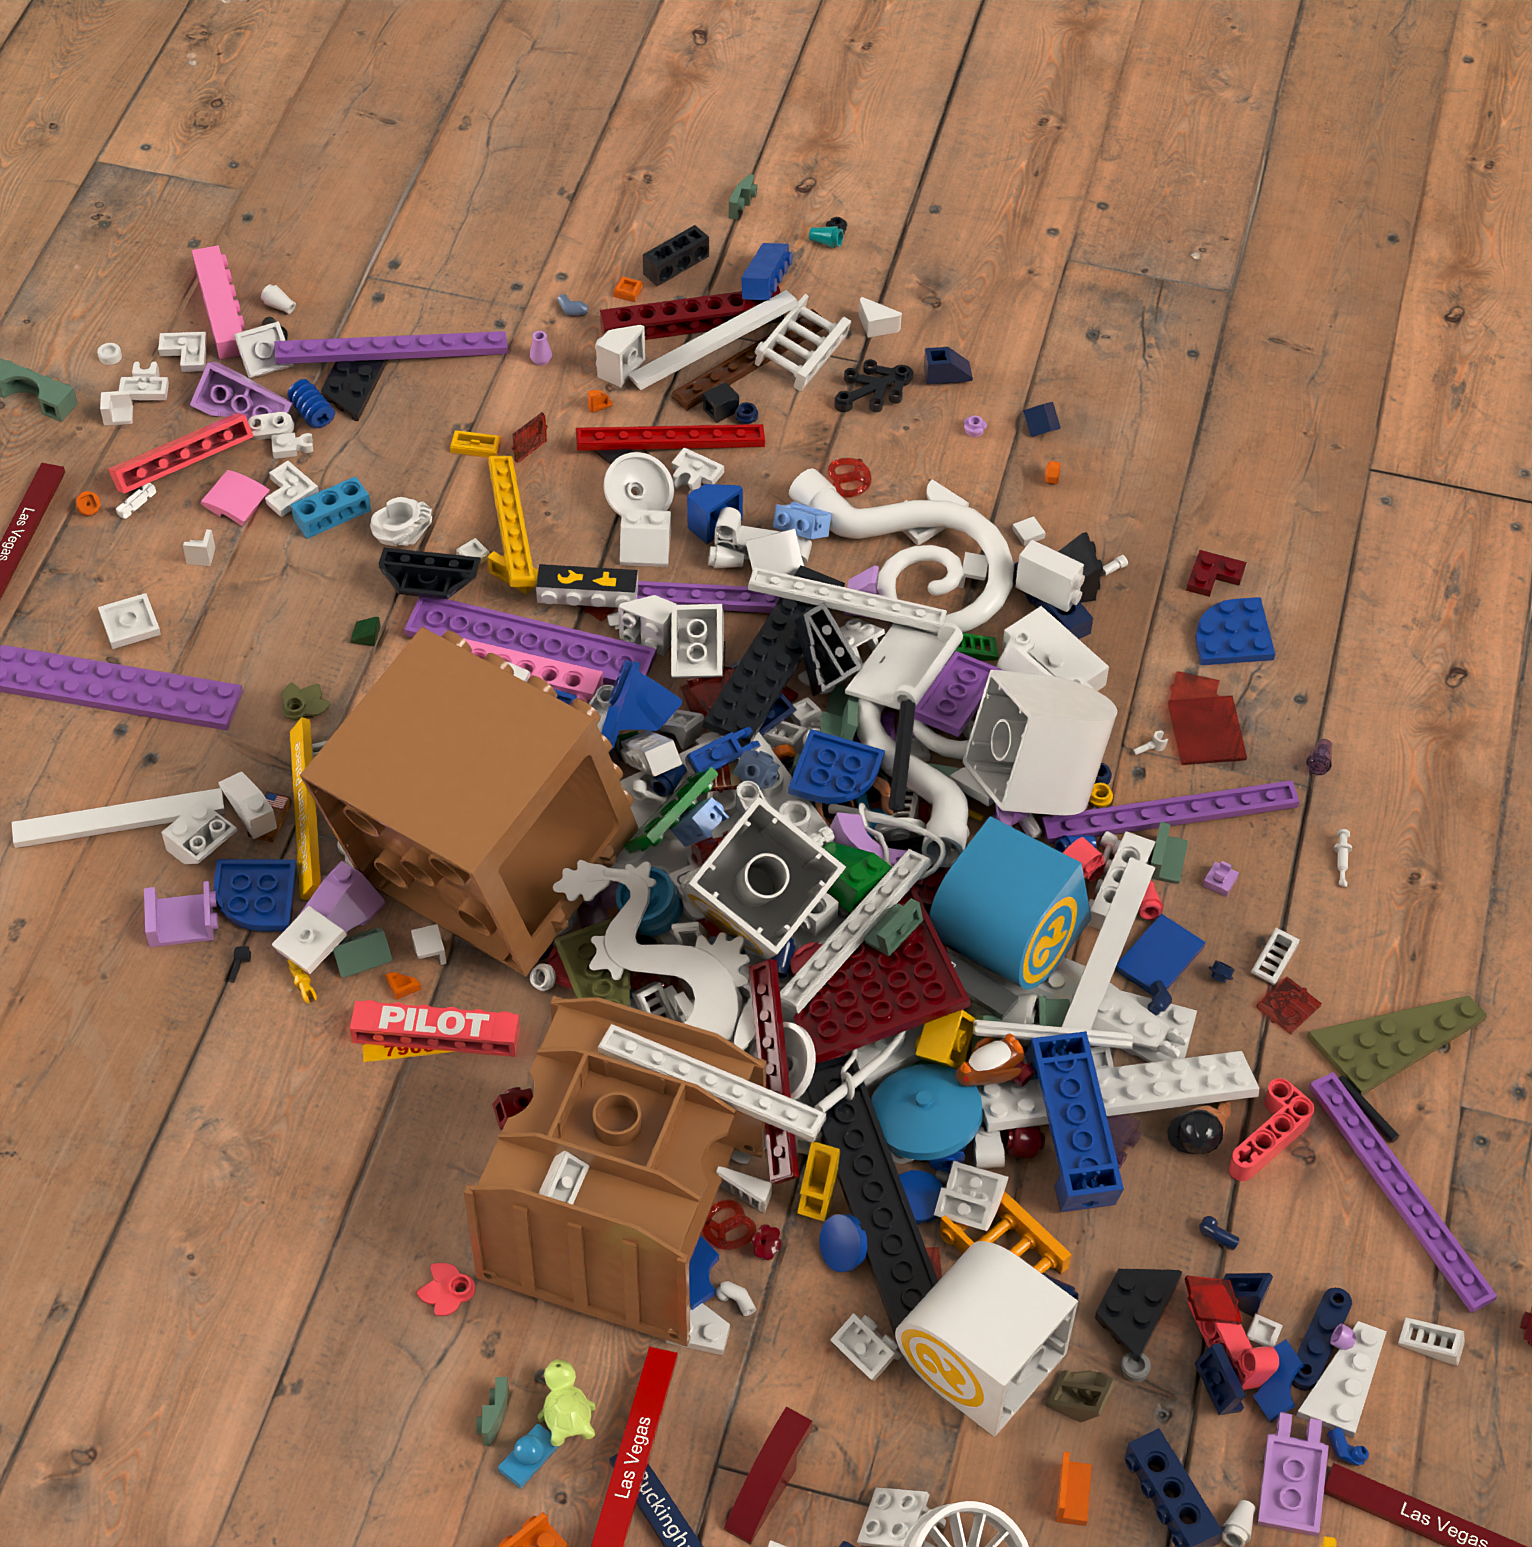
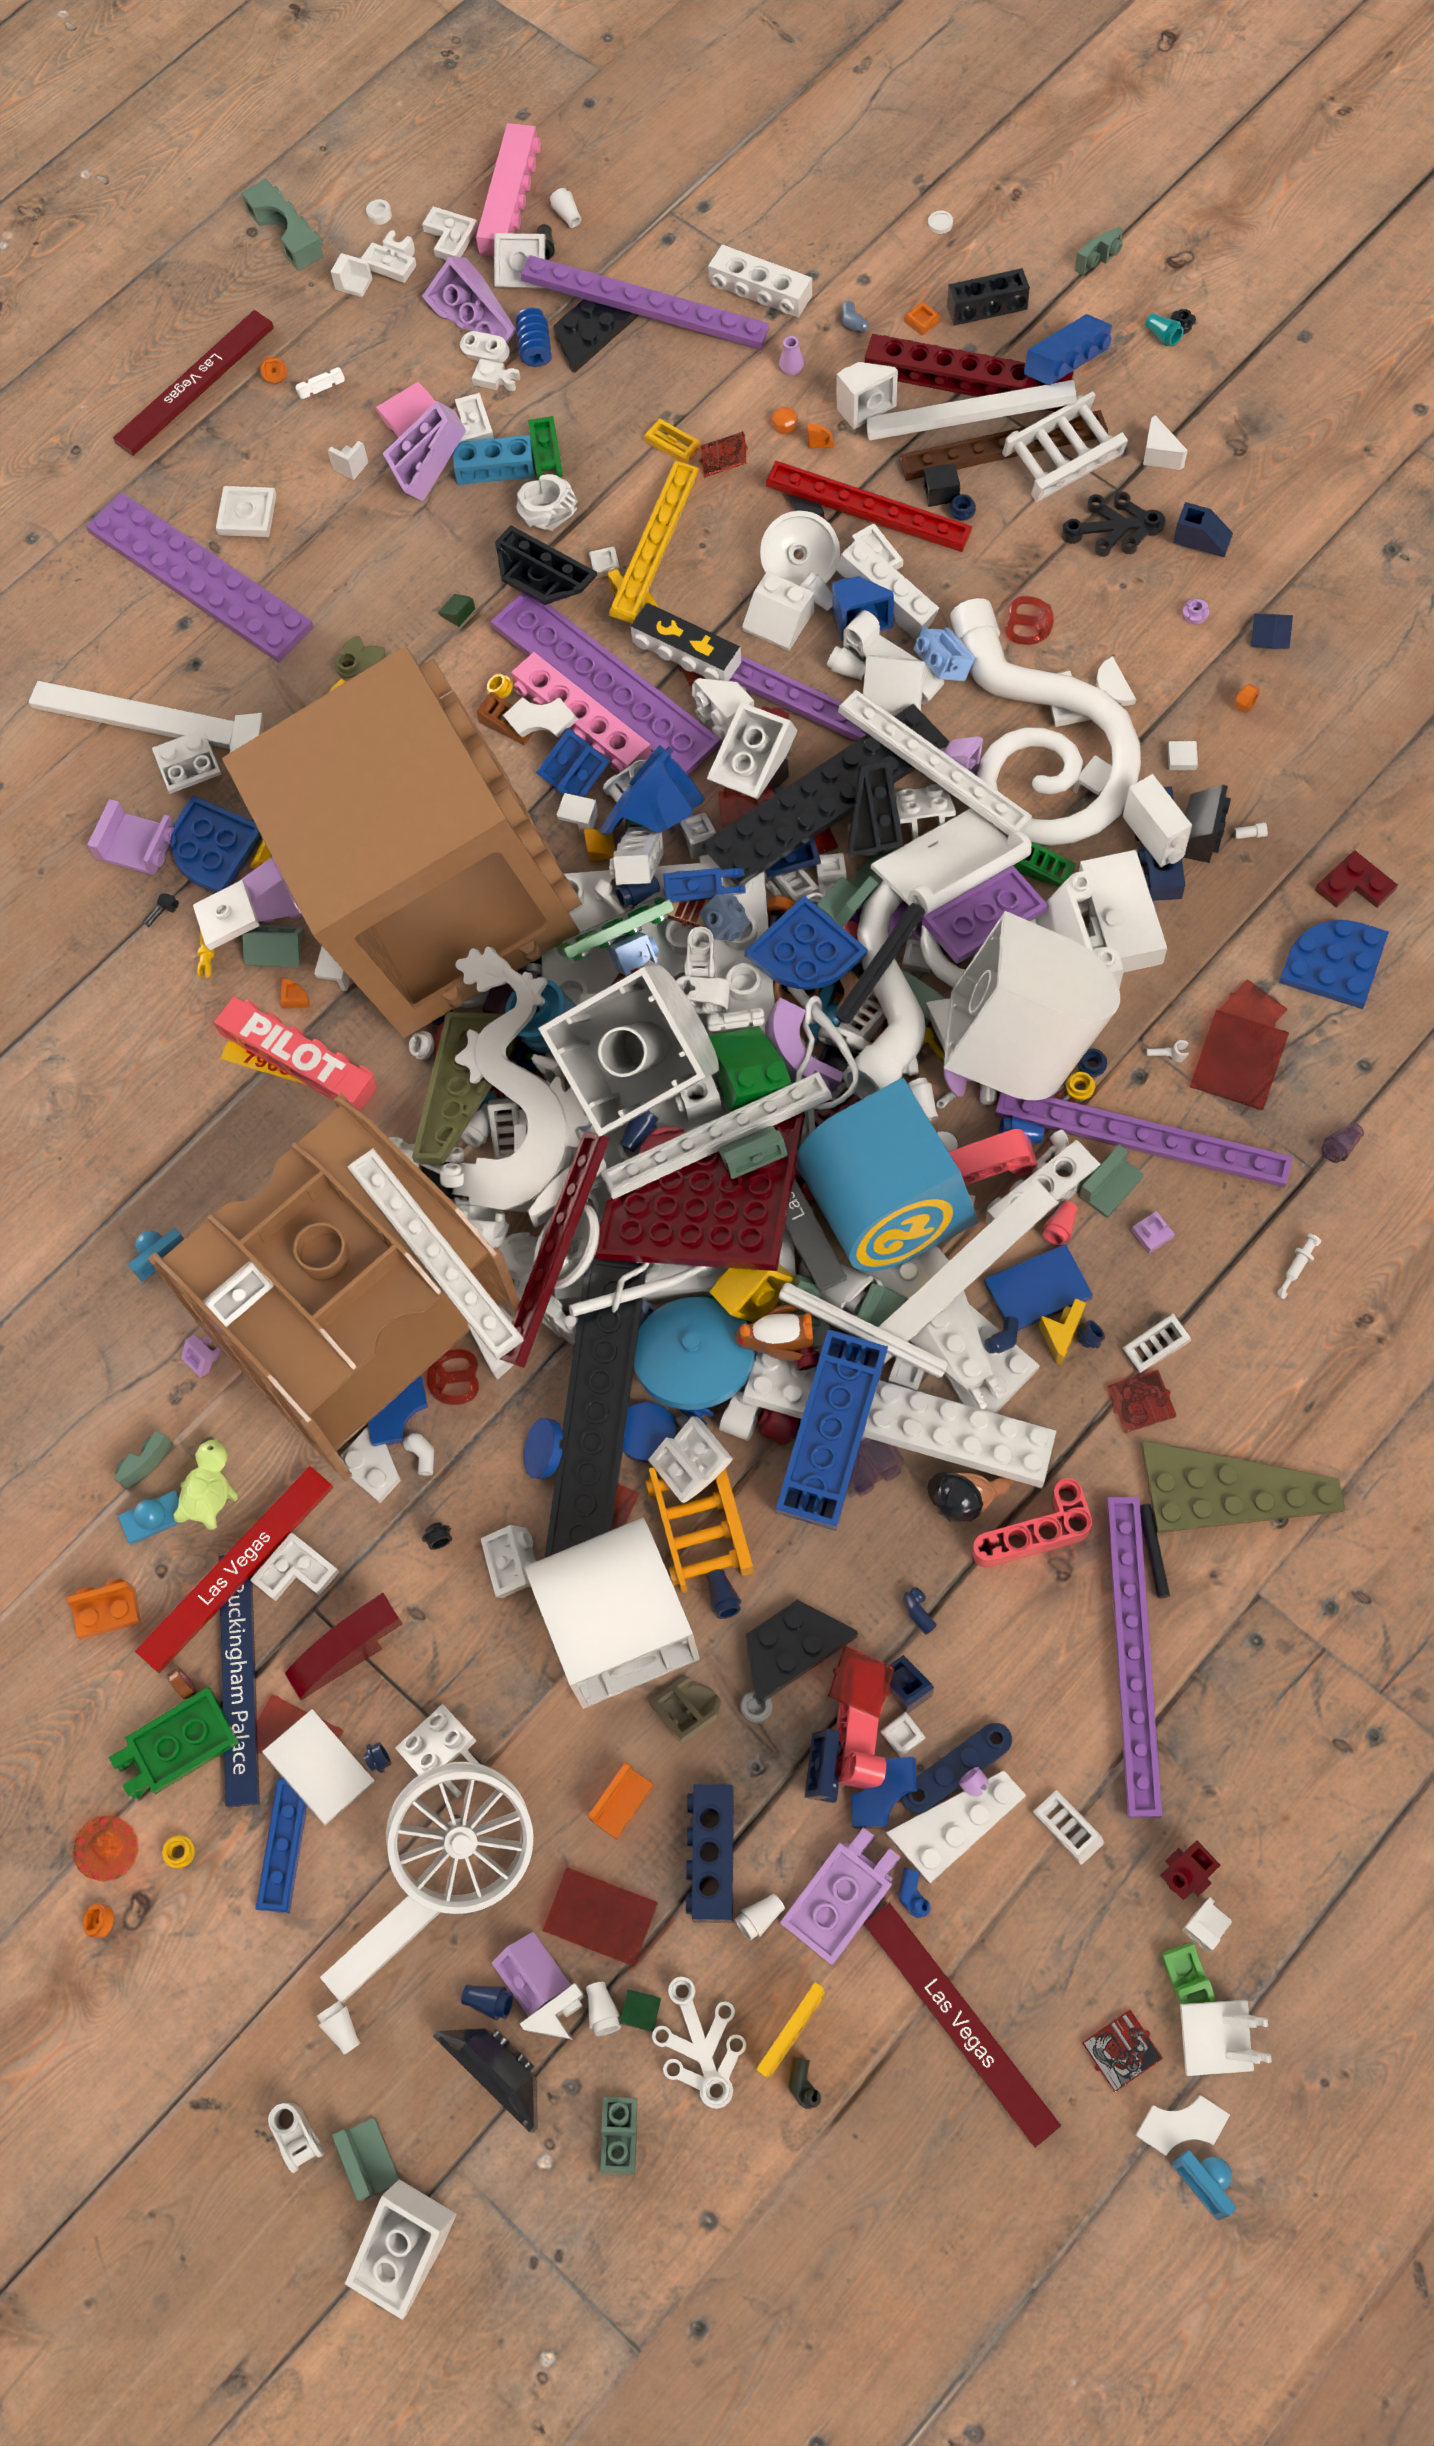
camera: 35 degrees right, 15 degrees up
(180, 453) = (382, 347): coral brick -> none
(271, 515) = (425, 449): none -> lavender wedge
(371, 481) = (545, 445): none -> green hinge
(402, 1236) = (149, 1243): none -> dark azure tile
(443, 1289) = (165, 1321): coral plate -> none
(479, 302) = (760, 281): none -> white brick
(493, 1304) = (198, 1355): none -> lavender tile
(561, 397) = (784, 420): none -> orange tile
(599, 216) = (940, 222): none -> white piece
(677, 515) = (822, 594): none -> white cone
(681, 1430) = (292, 1561): none -> white plate
(757, 496) = (911, 606): none -> white arch
(766, 1242) = (476, 1412): dark red plant -> none
(791, 1355) = (437, 1536): none -> black plate
(819, 1181) = (547, 1379): yellow slope -> none
(1199, 979) = (1059, 1335): none -> yellow slope

